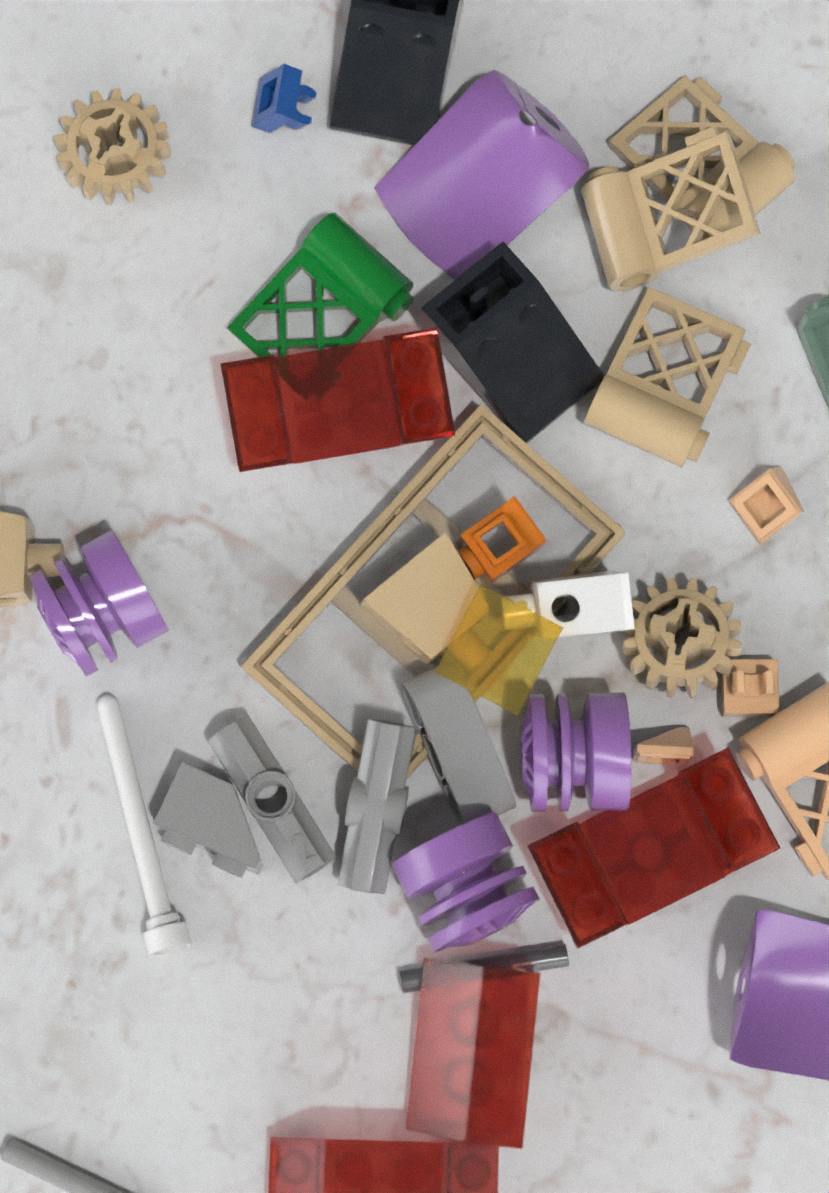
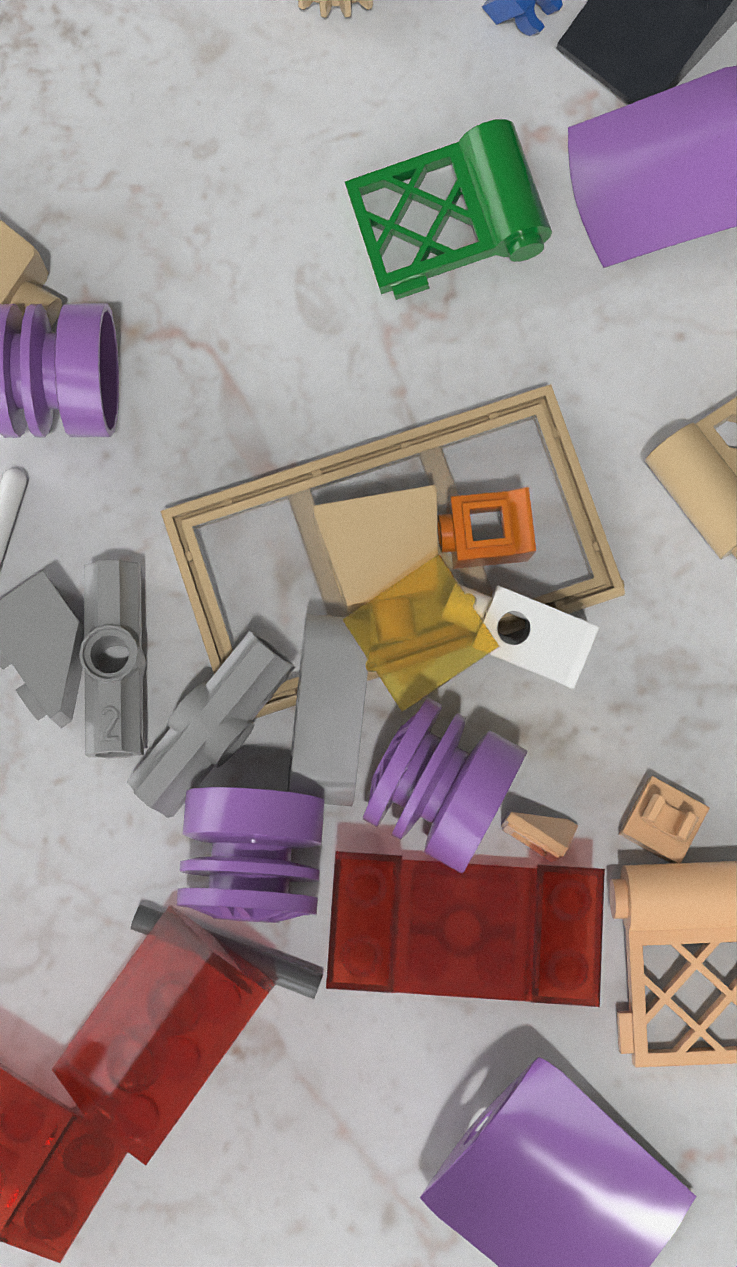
camera: 30 degrees right, 0 degrees up
(338, 400) = (405, 302): clear red slope -> none
(511, 343) = (615, 339): black slope -> none
(702, 643) = (640, 747): tan gear -> none

